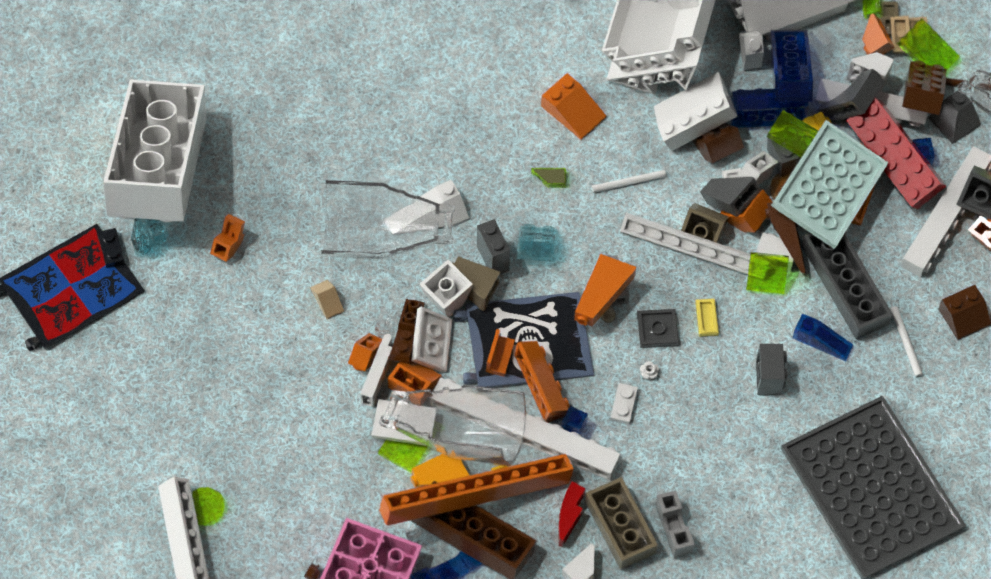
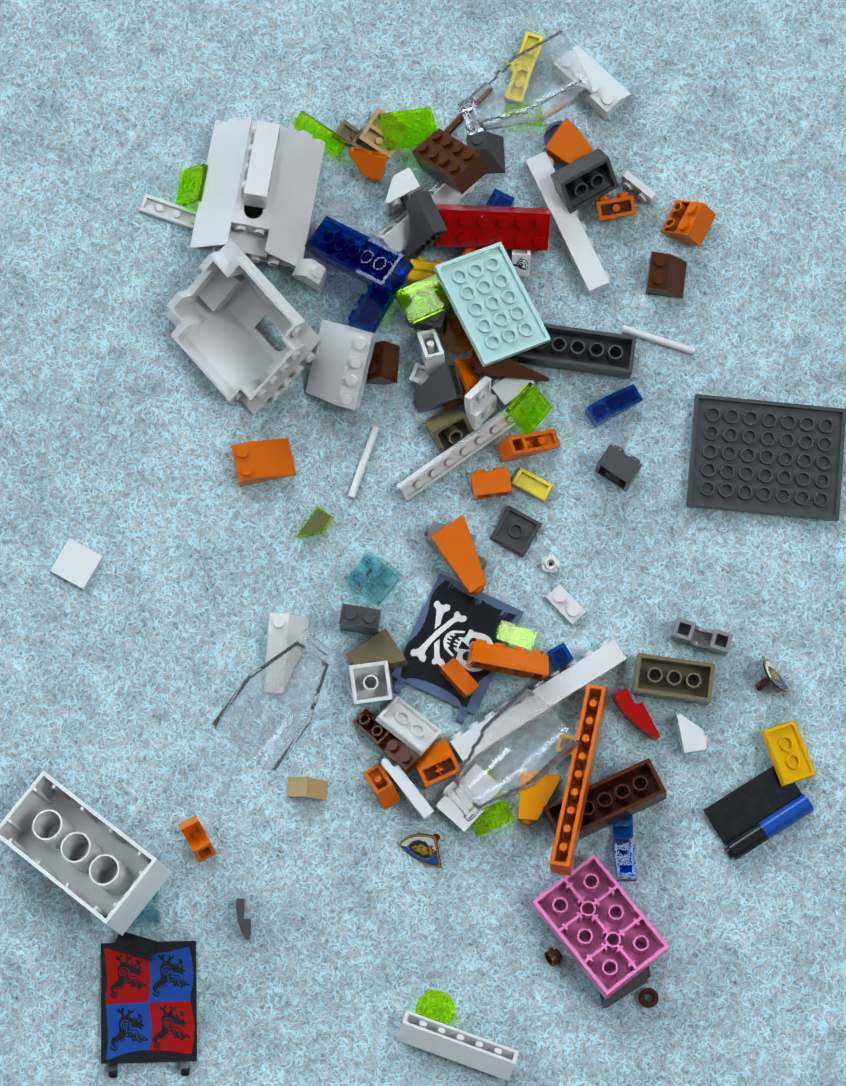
camera: 60 degrees left, 15 degrees up
(180, 315) = (245, 924): none -> dark grey slope
(335, 411) = (423, 848): none -> shield
(392, 29) = (76, 564): none -> white tile
(568, 378) = (515, 635): none -> clear neon green tile
(682, 282) = (490, 483): none -> orange brick
(736, 291) = (527, 445): none -> orange slope
(742, 230) = (480, 403): none -> white slope
(885, 194) = (521, 262): none -> white brick

